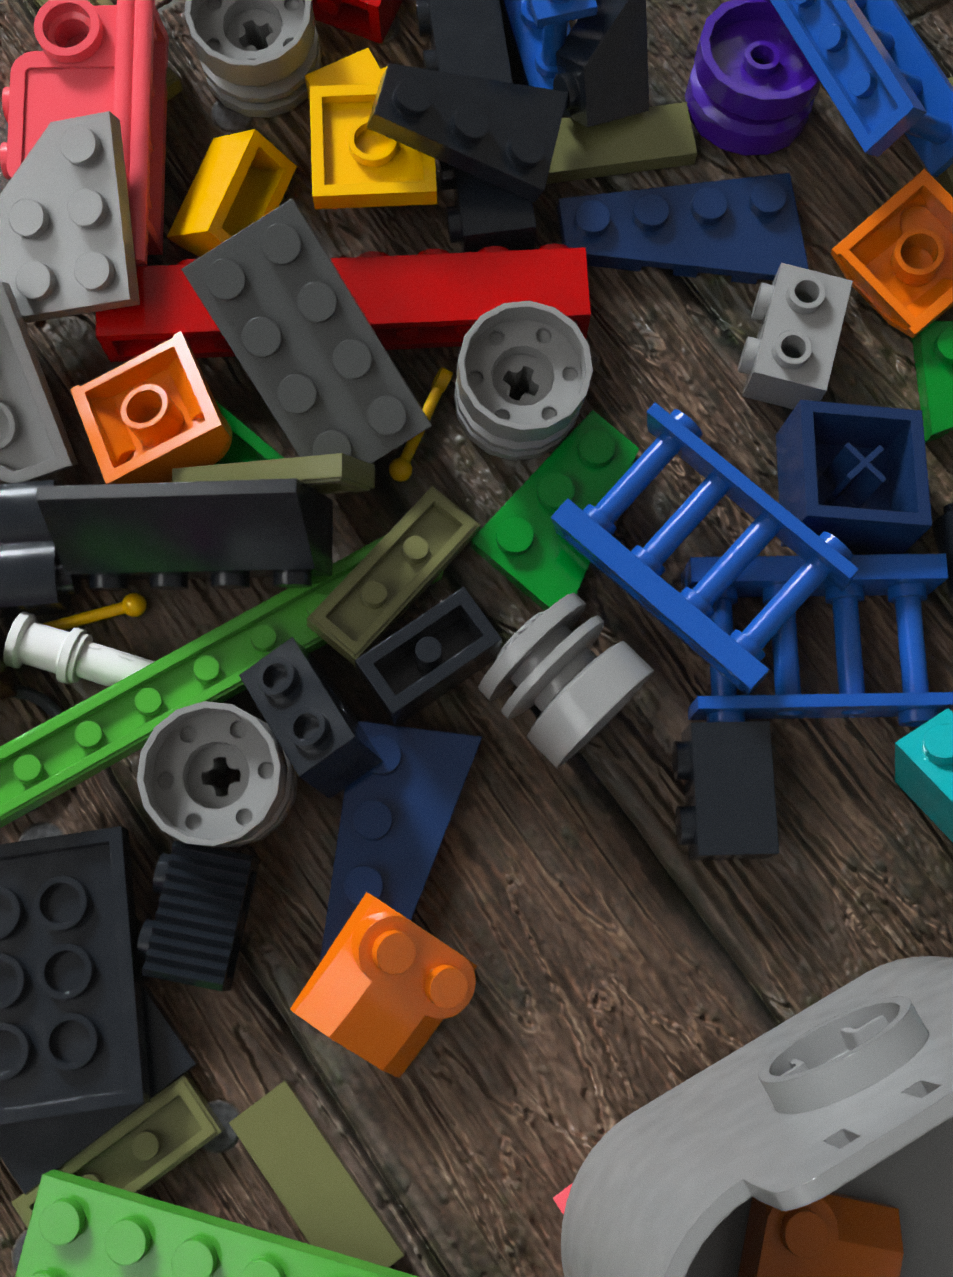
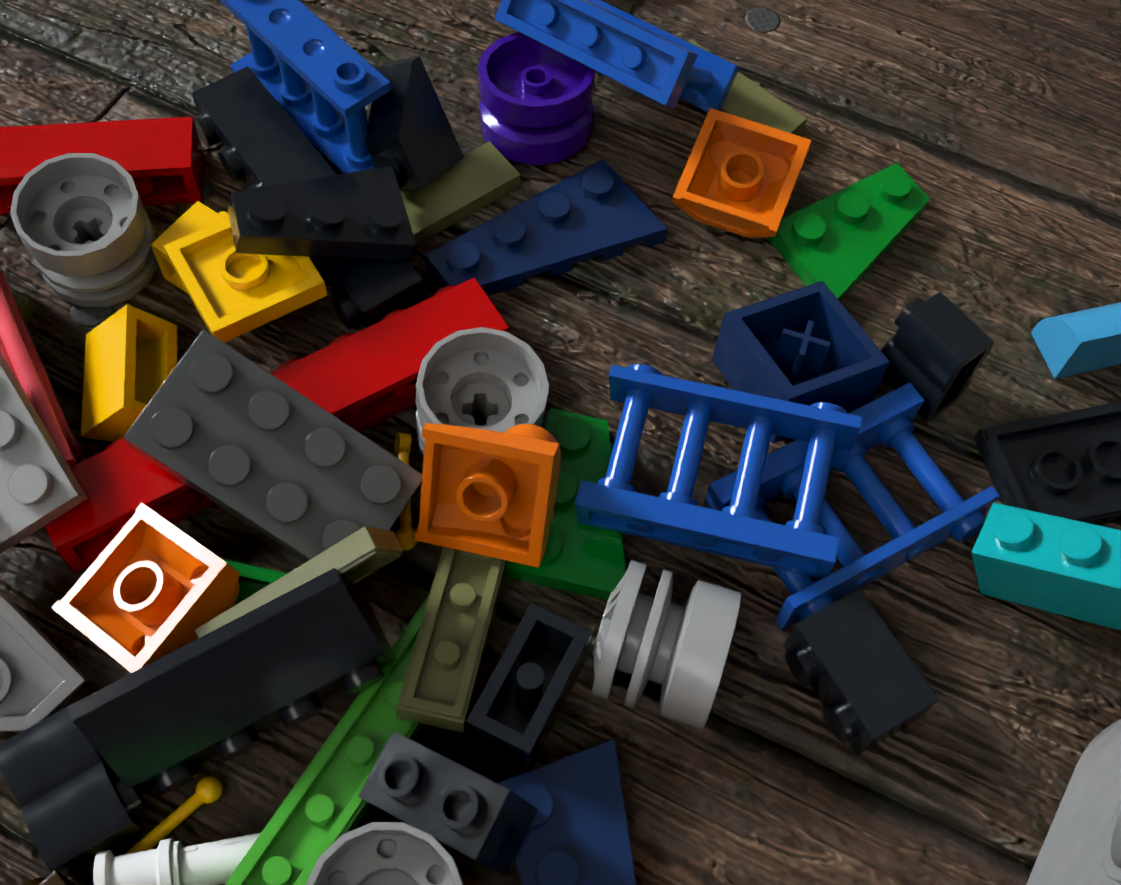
camera: 30 degrees left, 15 degrees down
(481, 468) = (489, 490): none -> orange slope
(796, 336) = (683, 276): light grey brick -> none

